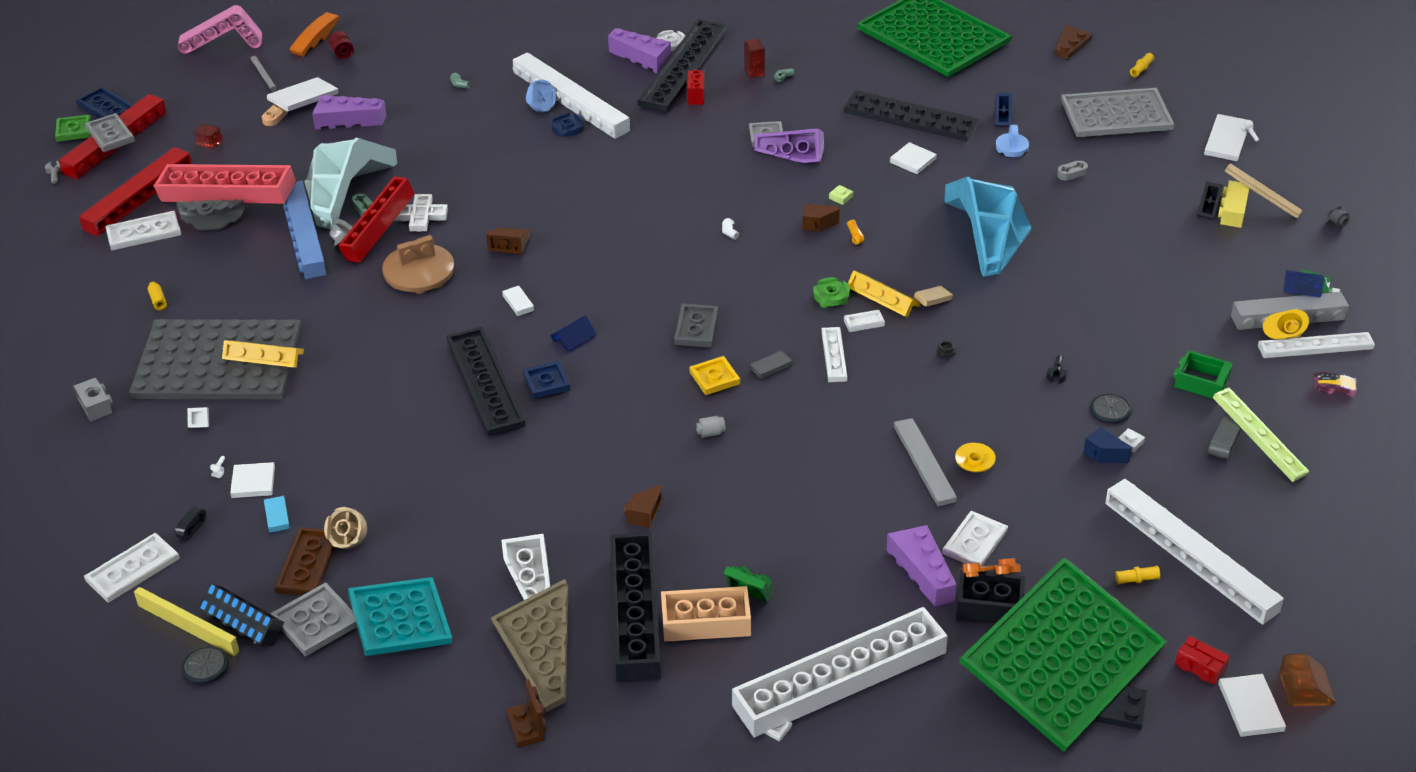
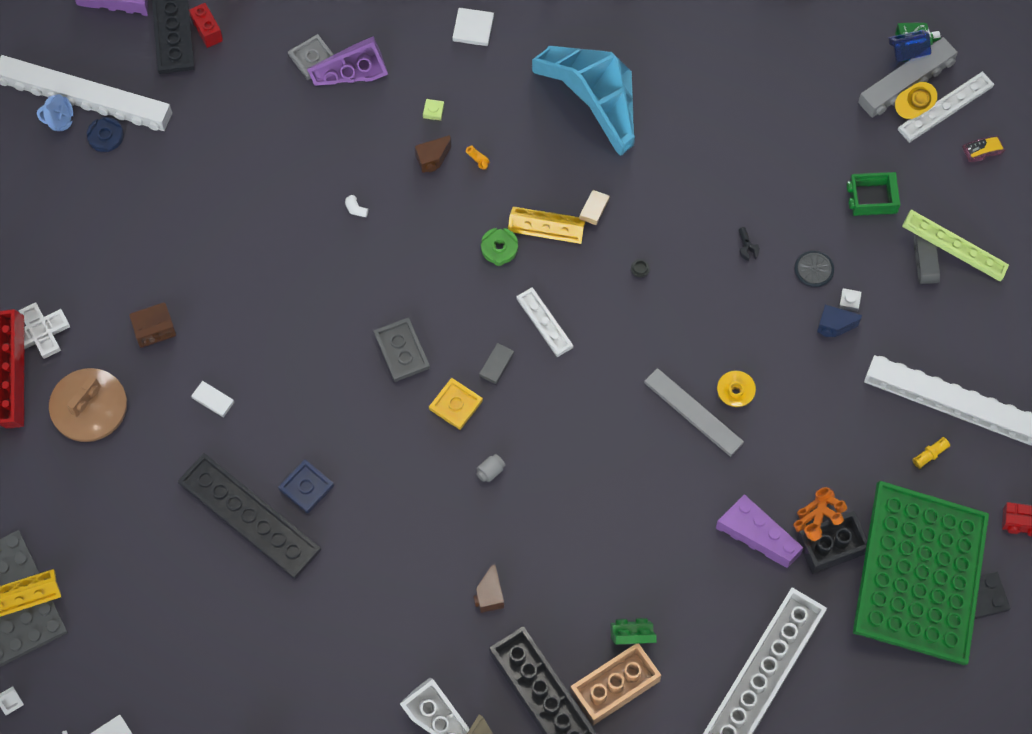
camera: 30 degrees left, 25 degrees up
(575, 333) = (293, 415): clear blue panel -> none
(864, 320) = (547, 266): white tile -> none
(975, 539) = (782, 480): white tile -> none

